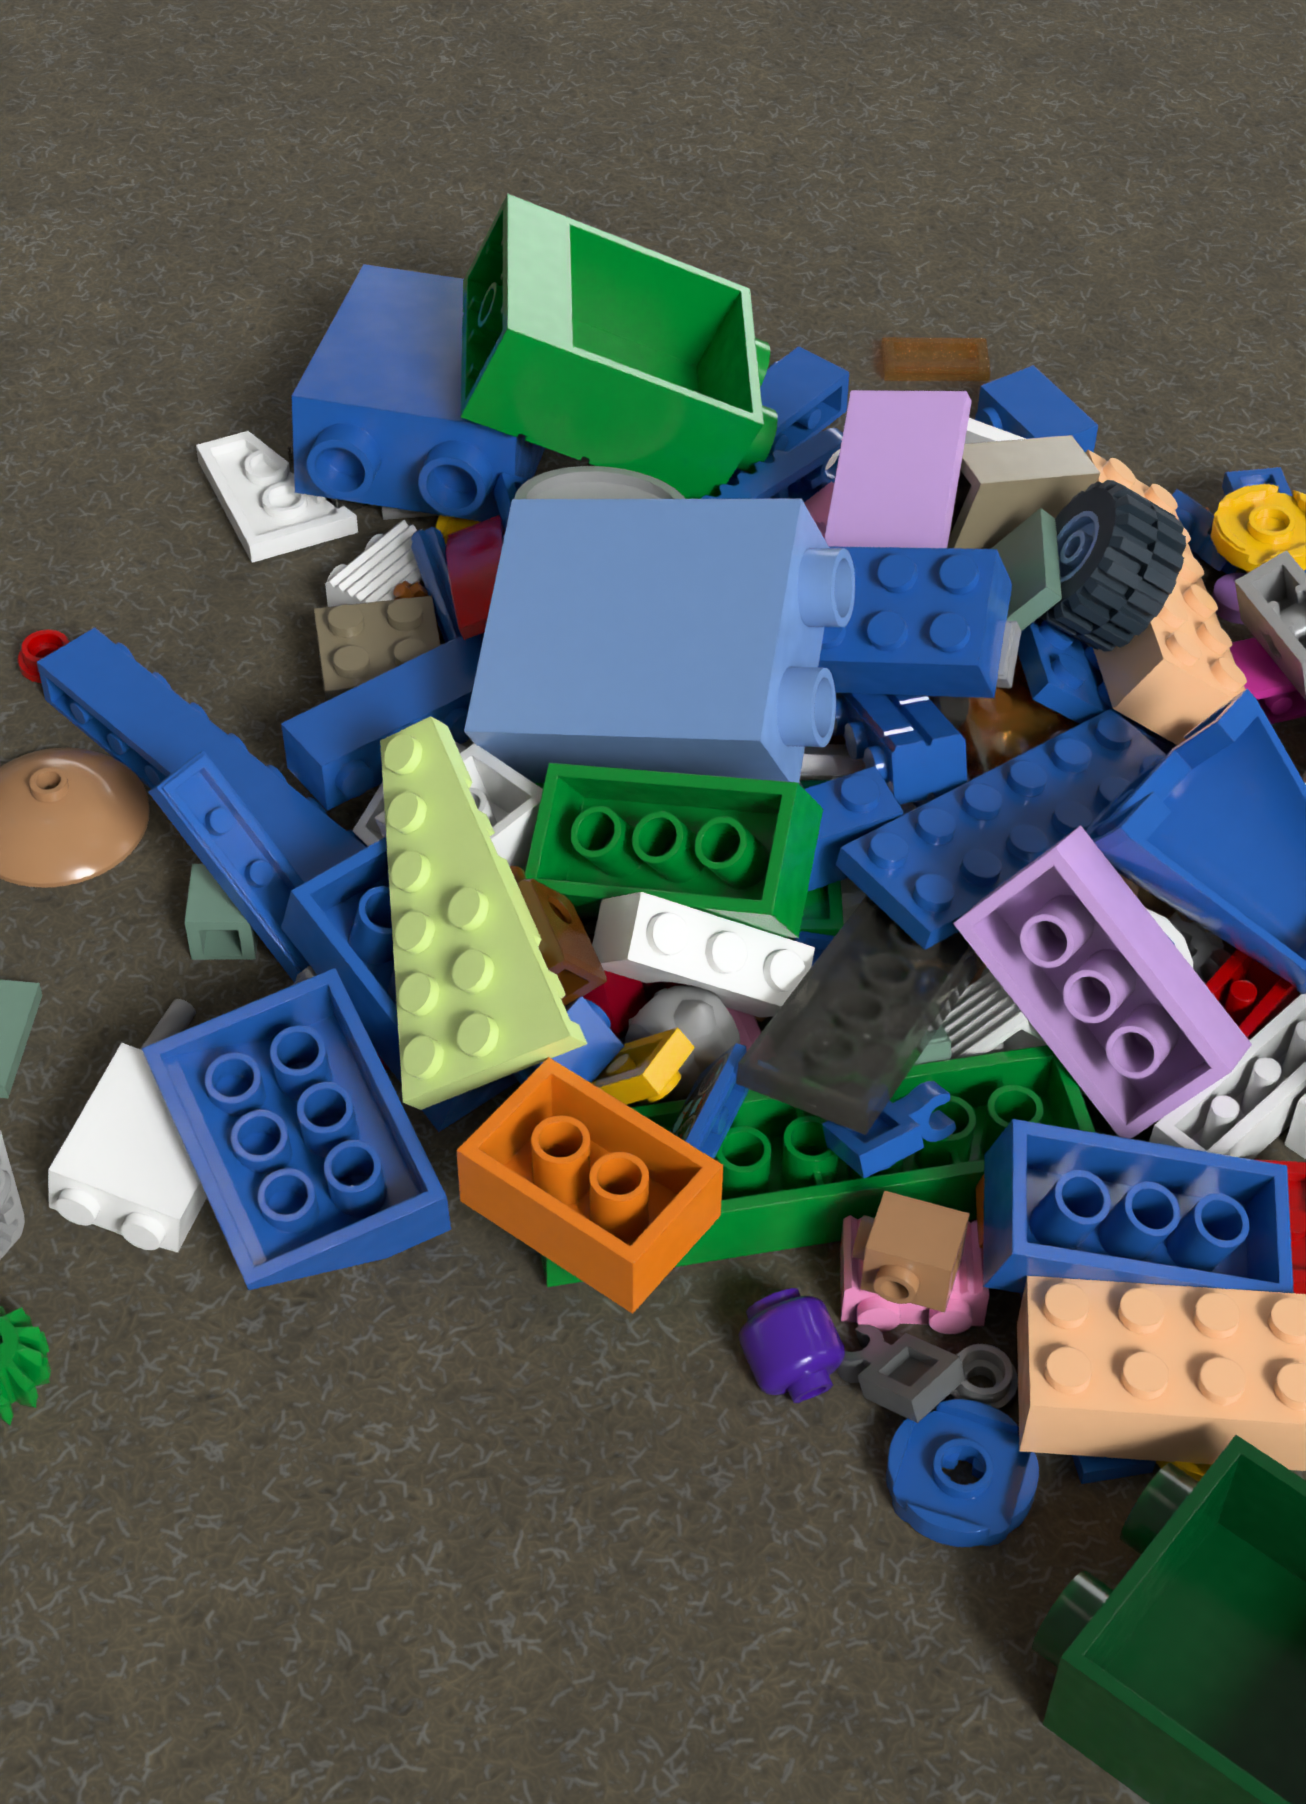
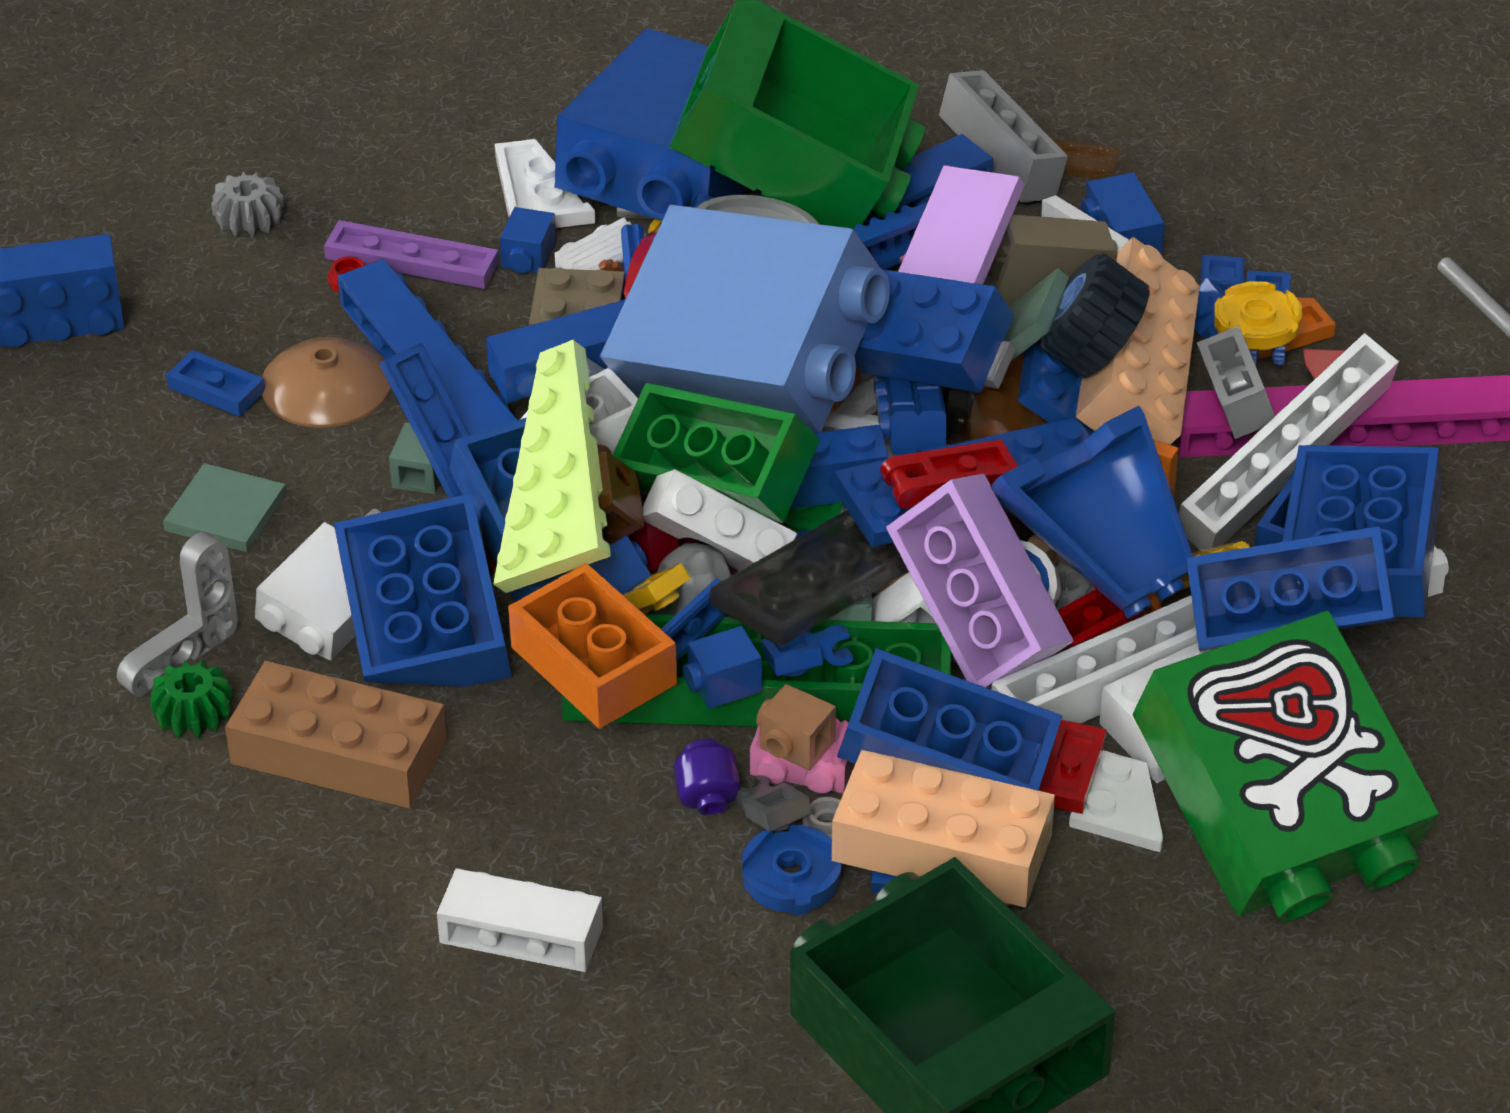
camera: 15 degrees right, 5 degrees down
(127, 612) = (414, 253): none -> medium lavender plate
(225, 1384) = (337, 734): none -> medium nougat brick
(280, 570) = (527, 240): none -> blue brick
(597, 1653) = (520, 919): none -> white brick
(785, 1179) = (723, 667): none -> blue brick
(809, 312) = (1000, 127): none -> light grey brick
(1003, 822) = (941, 466): none -> red plate
(1177, 473) = (1222, 270): none -> blue tile

